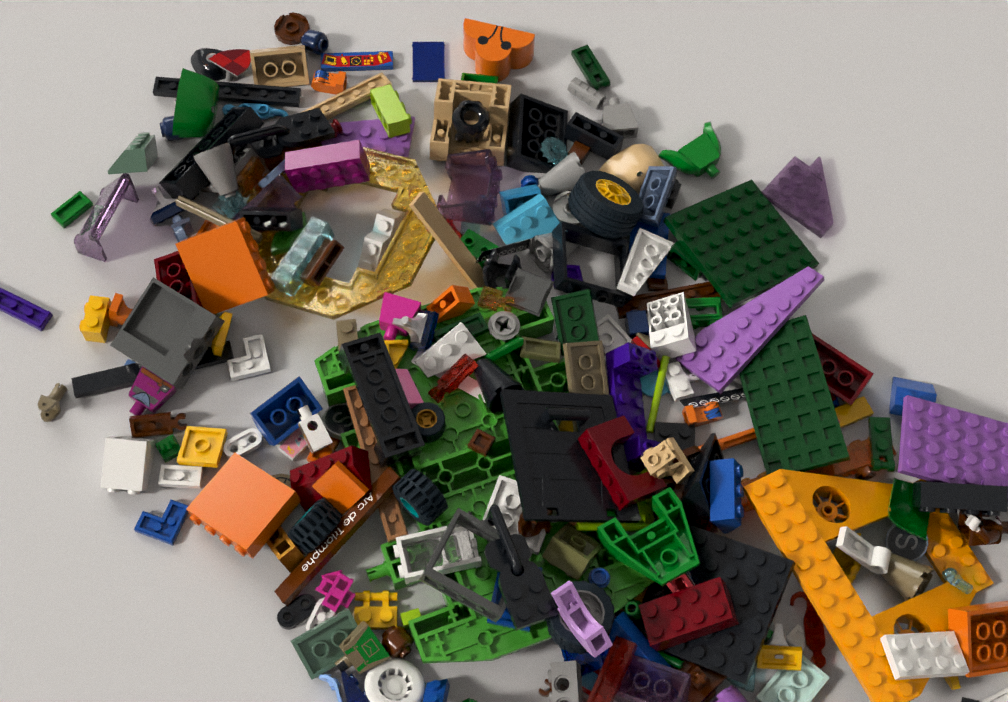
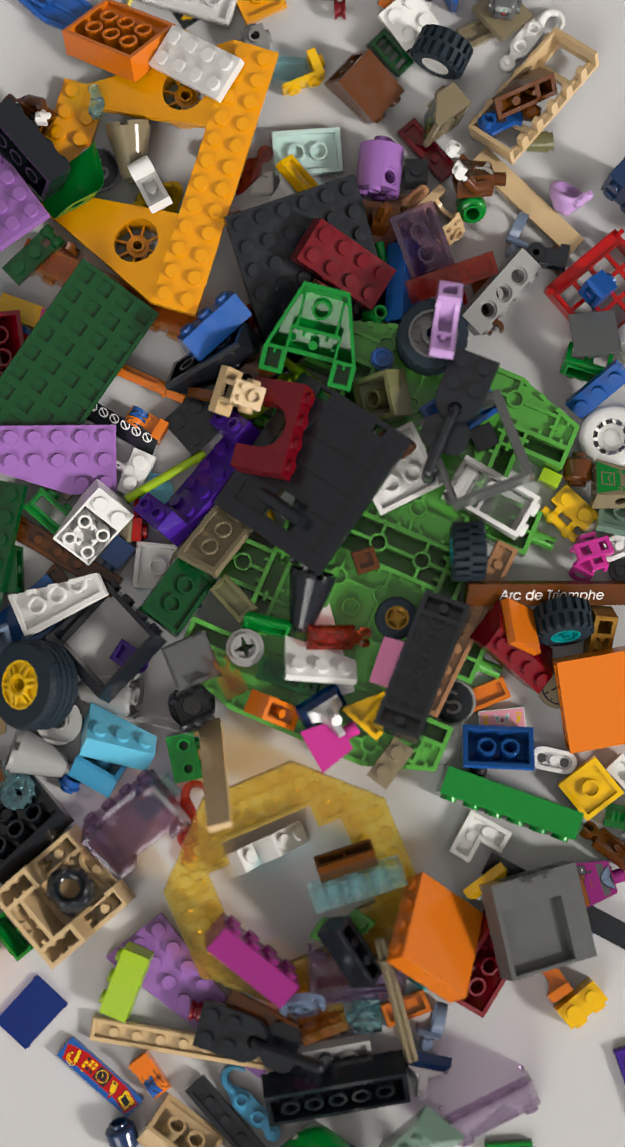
camera: 140 degrees left, 20 degrees up
(219, 169) = (354, 1051): light grey cone -> none
(245, 389) = (510, 802): none -> green brick
(315, 439) = (493, 704): white torso -> none
(482, 586) = (483, 437): none -> black tile

